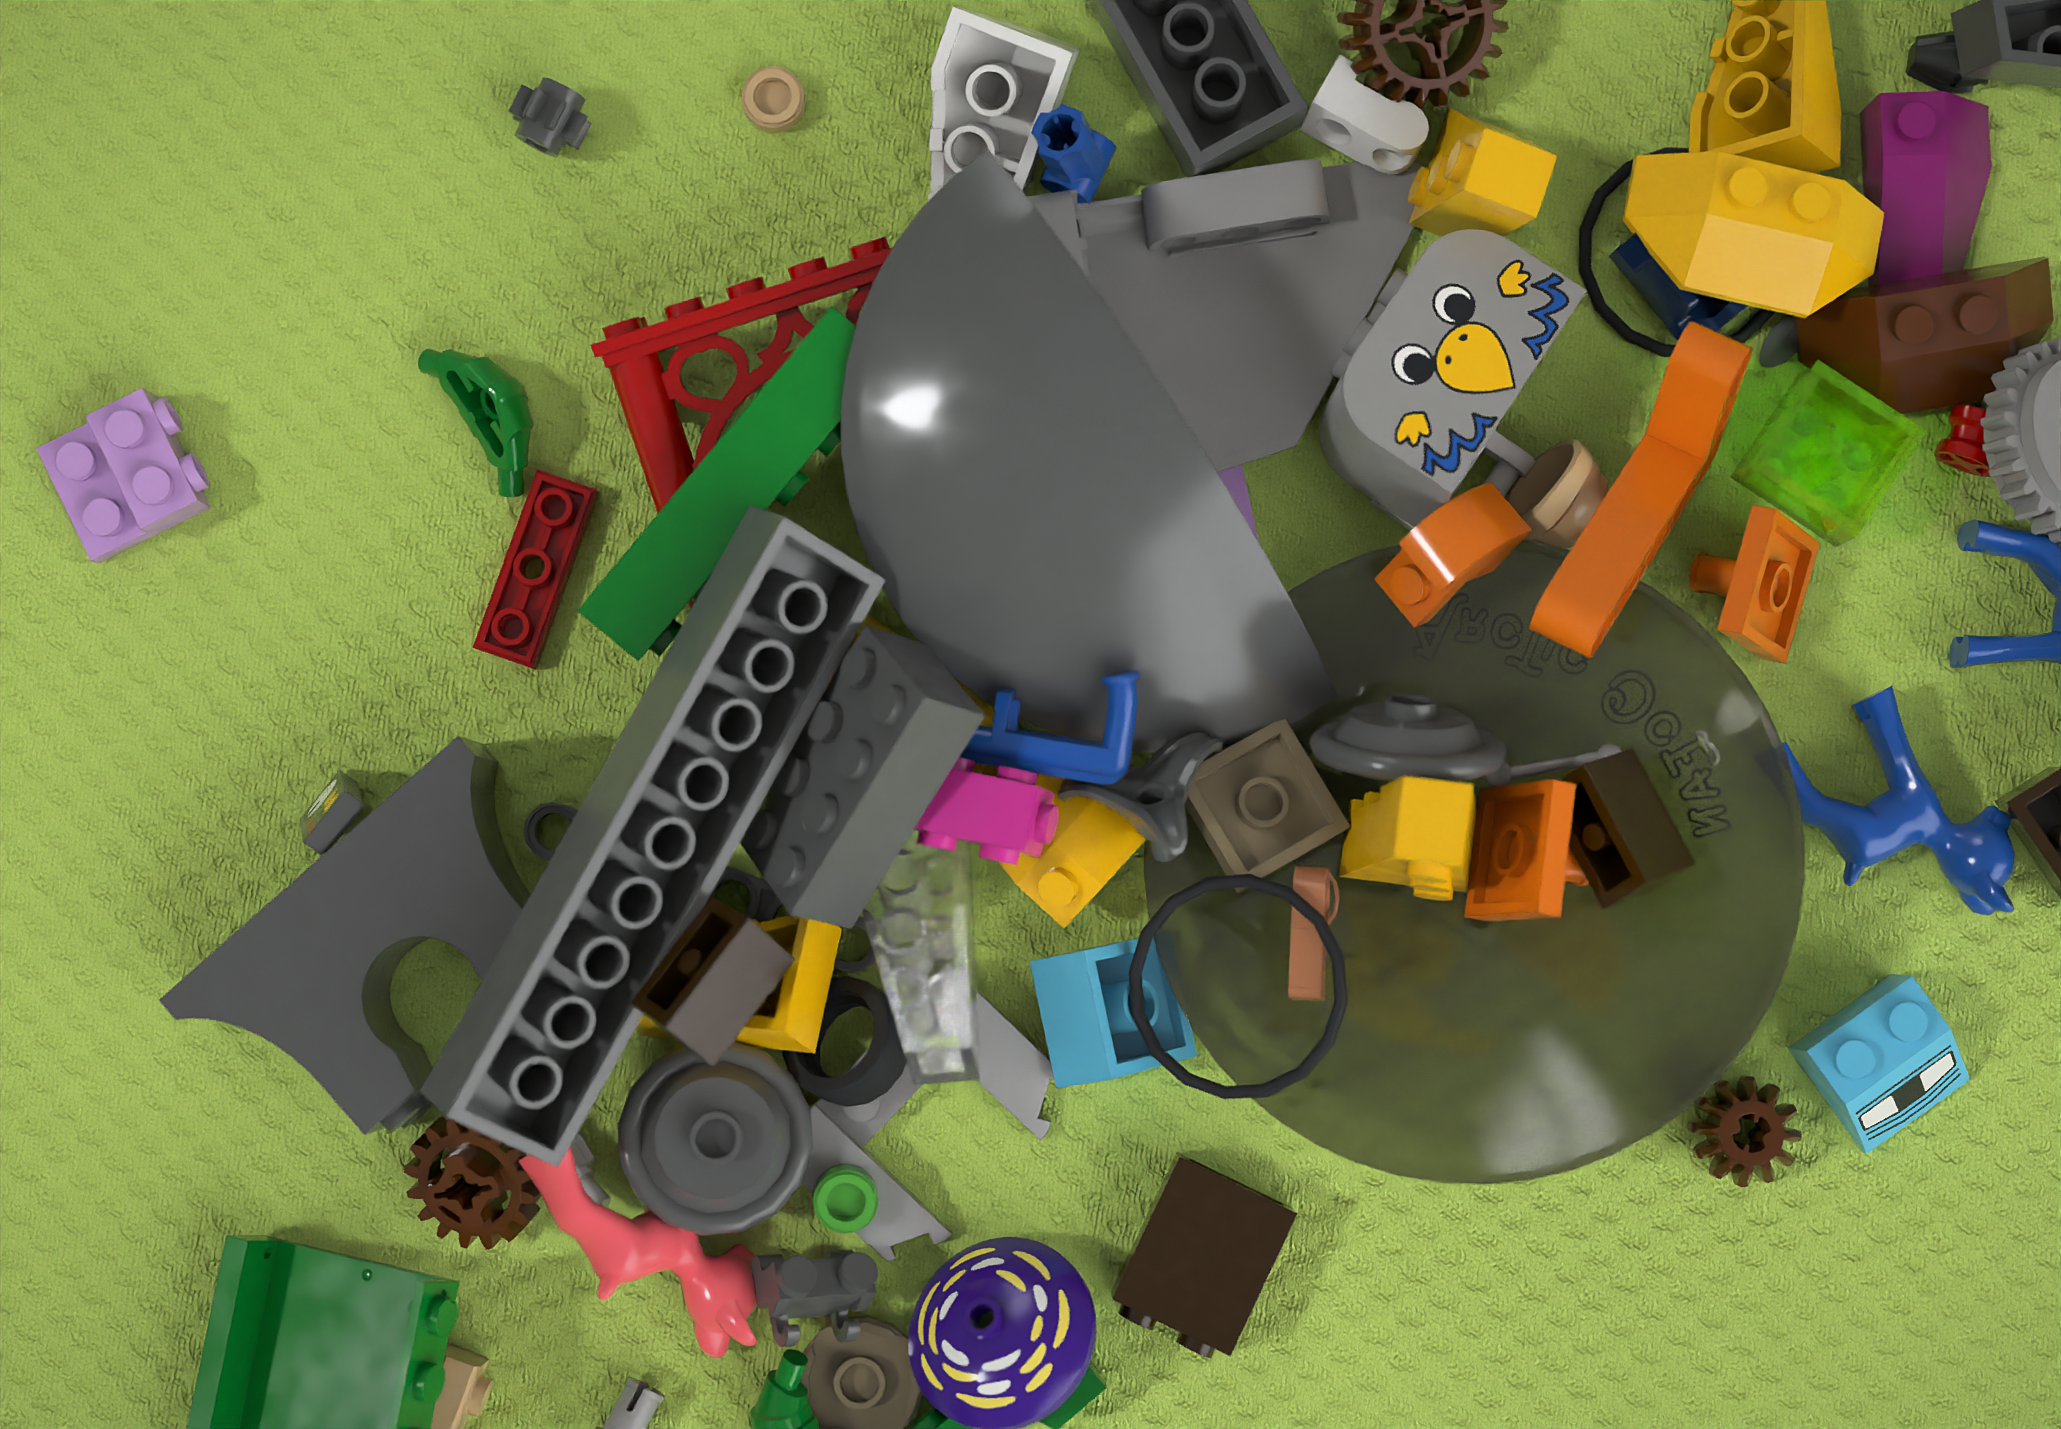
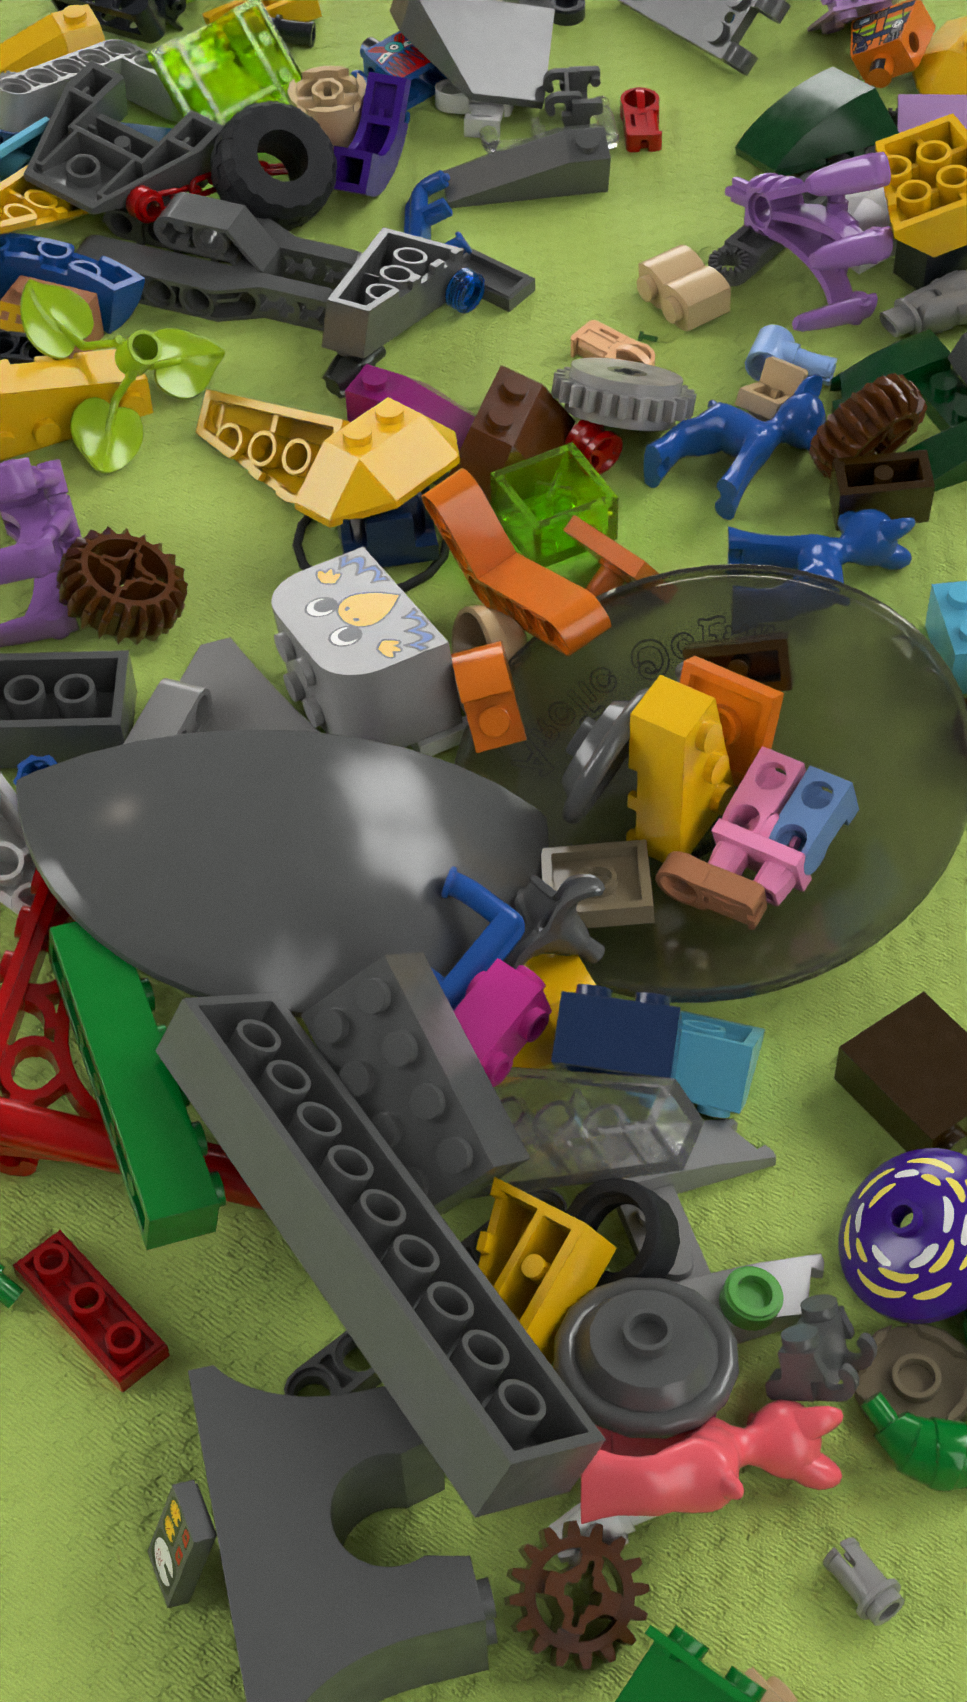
camera: 65 degrees left, 35 degrees down
(712, 981) = (515, 1247): dark brown brick -> none
(1018, 953) = (617, 1034): none -> dark blue brick
(1339, 983) = (730, 856): black piece -> none
(1365, 122) = (163, 646): white leg -> none
(1396, 970) = (782, 823): none -> bright pink hips
(1479, 179) = (240, 573): yellow wedge -> none

